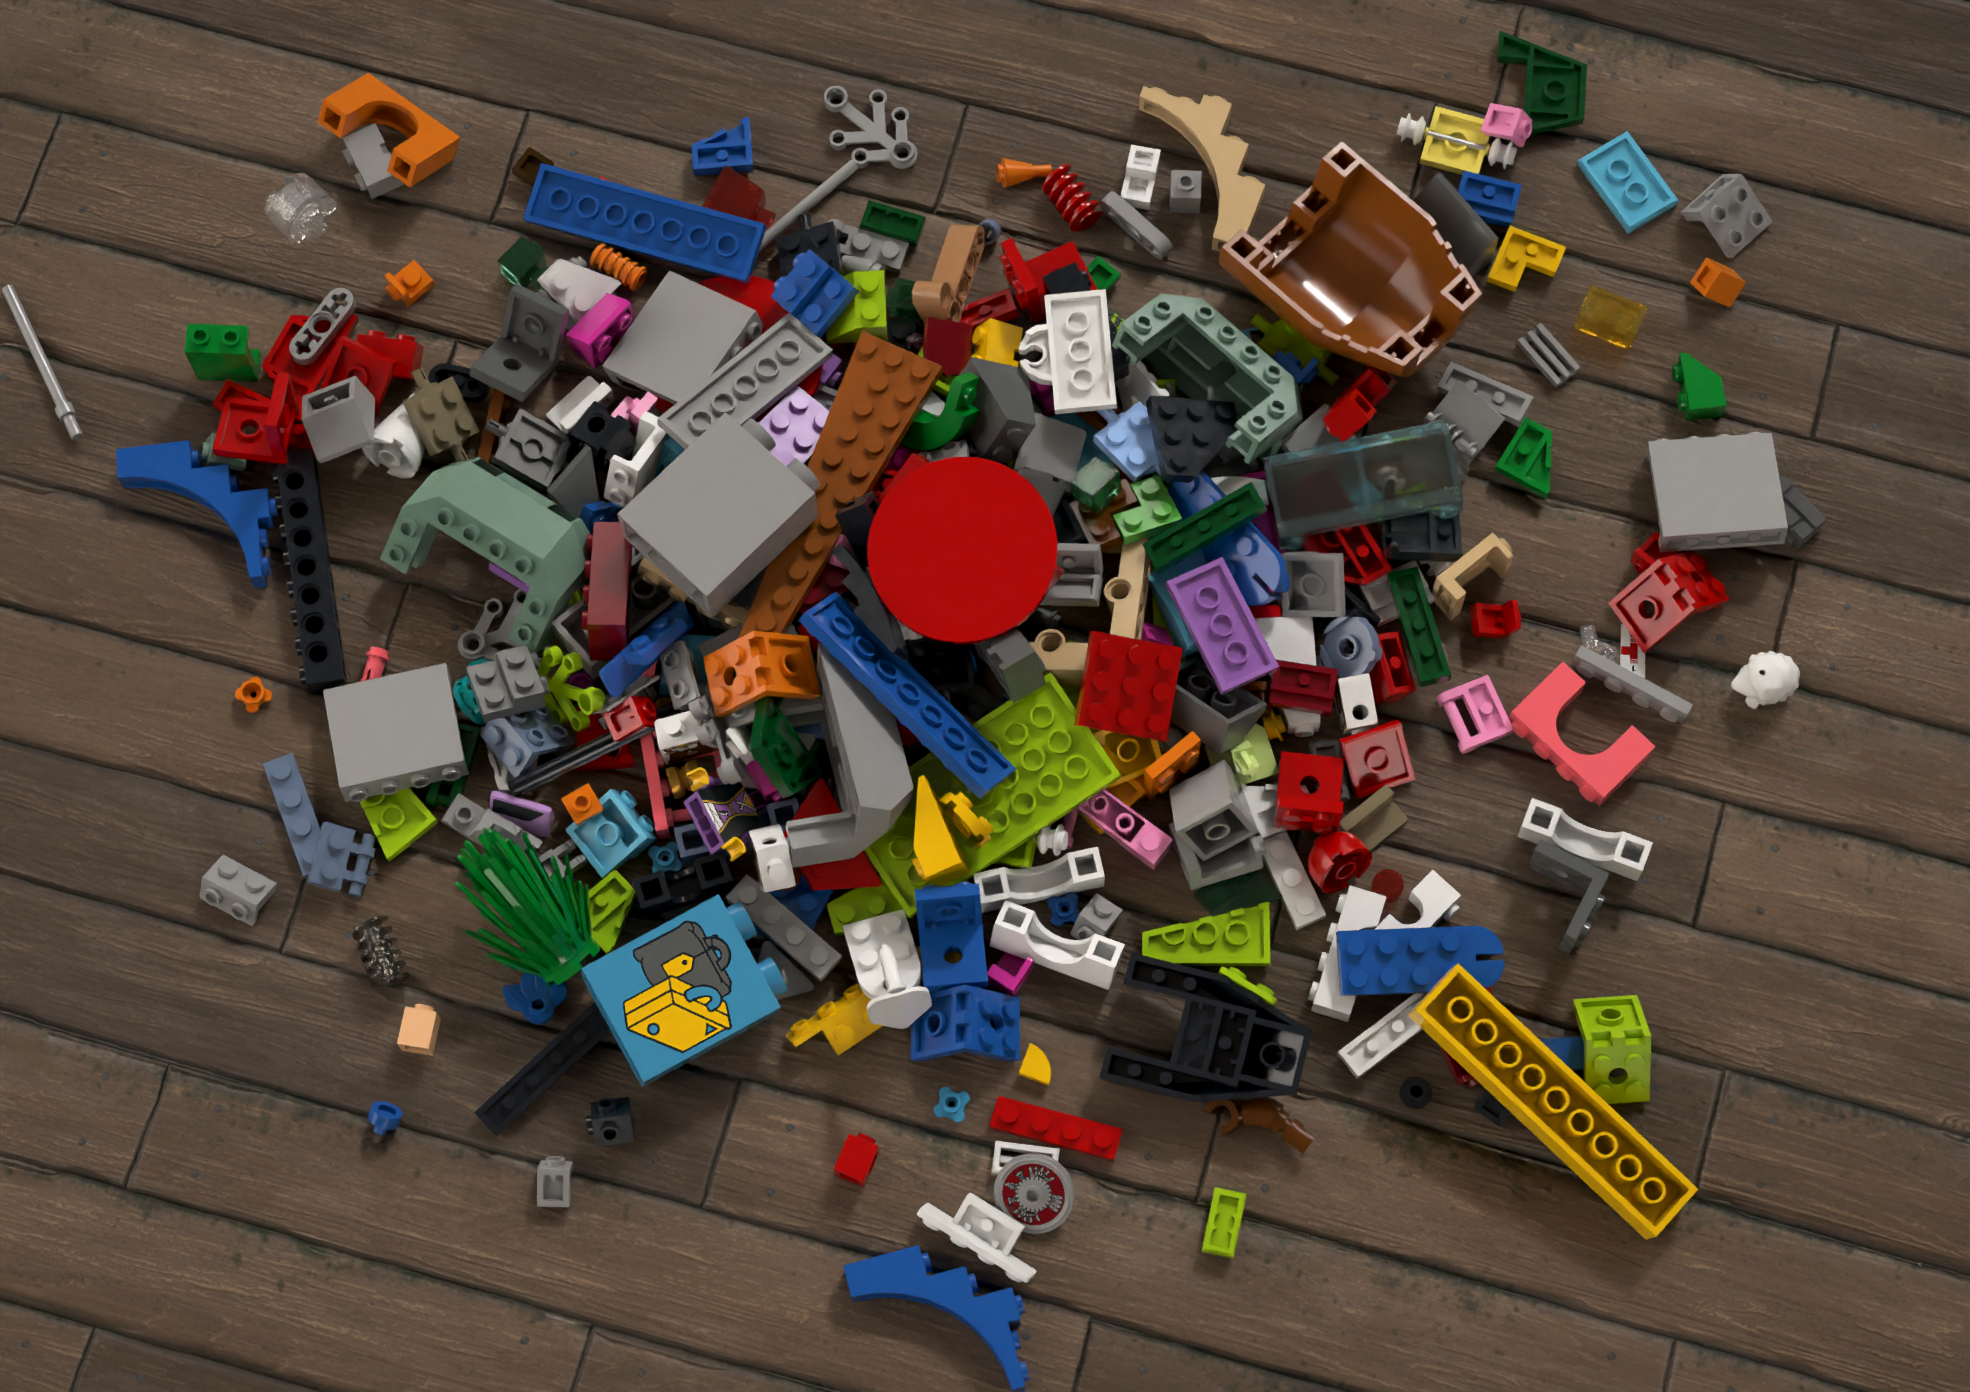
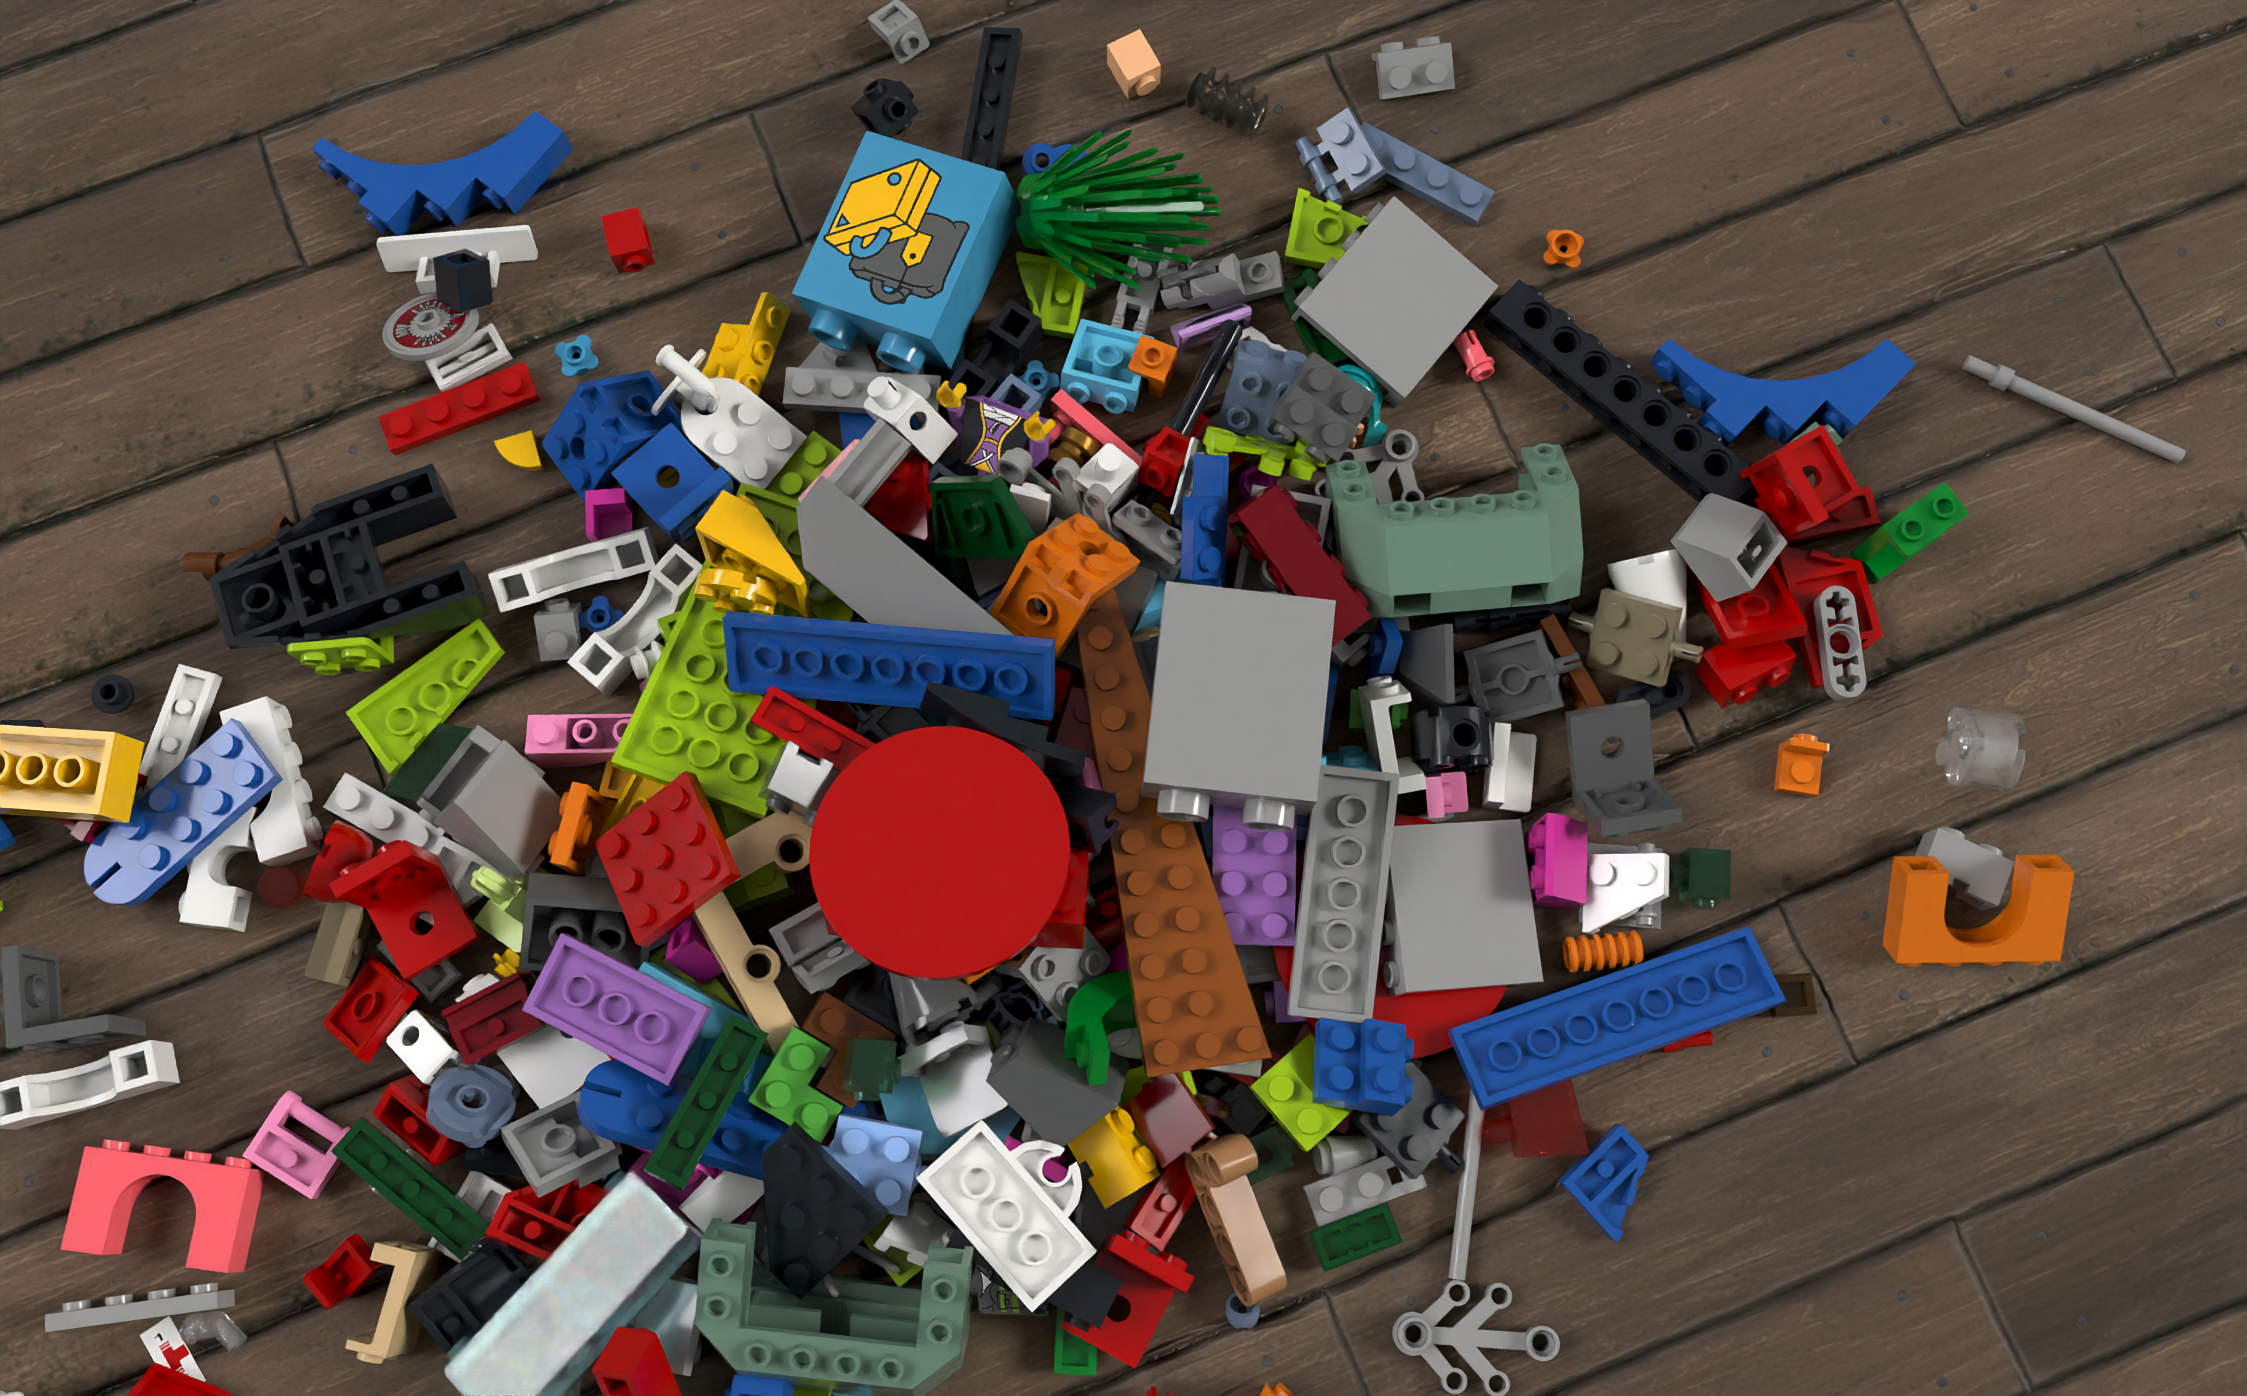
camera: 140 degrees right, 5 degrees up
(983, 697) = (808, 728): none -> red plate
(989, 1204) = (463, 280): none -> black panel
(1224, 1222) = (227, 434): lime plate -> none

